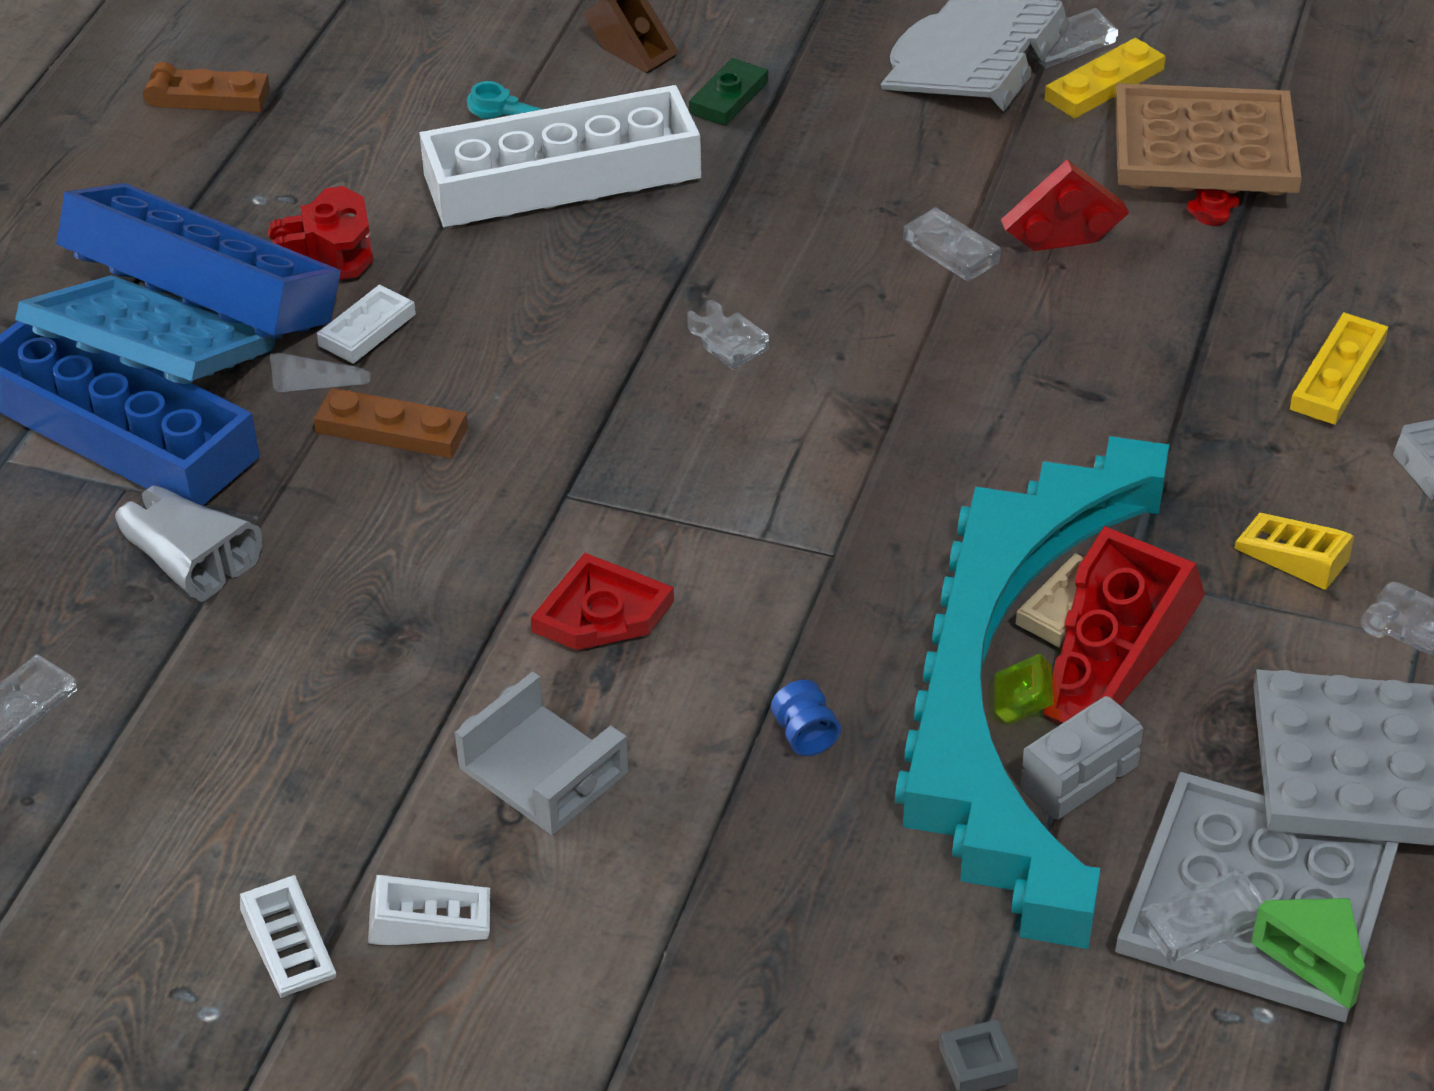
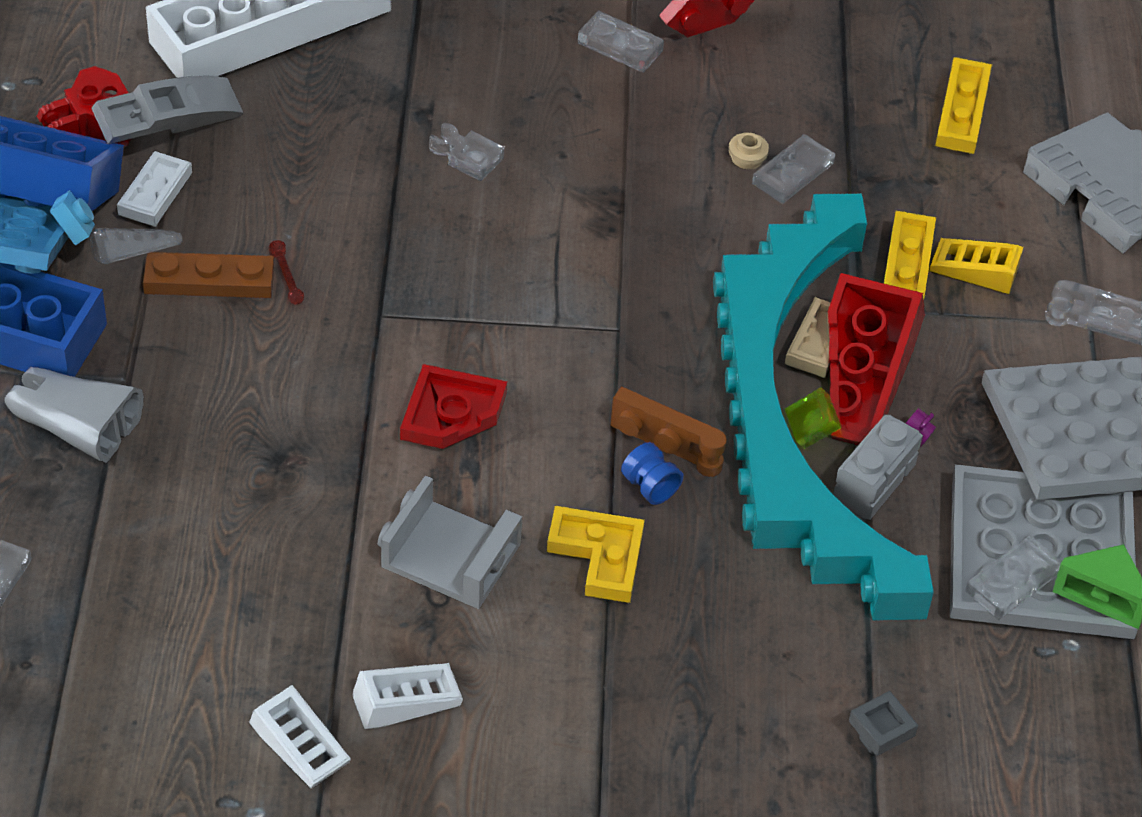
camera: 20 degrees left, 5 degrees up
(253, 334) = (73, 216): none -> medium azure plate
(405, 234) = (166, 105): none -> light grey slope
(477, 408) = (278, 250): none -> clear red hinge
(724, 792) = (606, 540): none -> yellow plate
(844, 673) = (669, 430): none -> dark orange plate
(1058, 381) = (748, 150): none -> tan plate
(1104, 408) = (793, 168): none -> clear plate
(1155, 721) = (922, 423): none -> magenta plate
(1213, 524) = (910, 251): none -> yellow plate

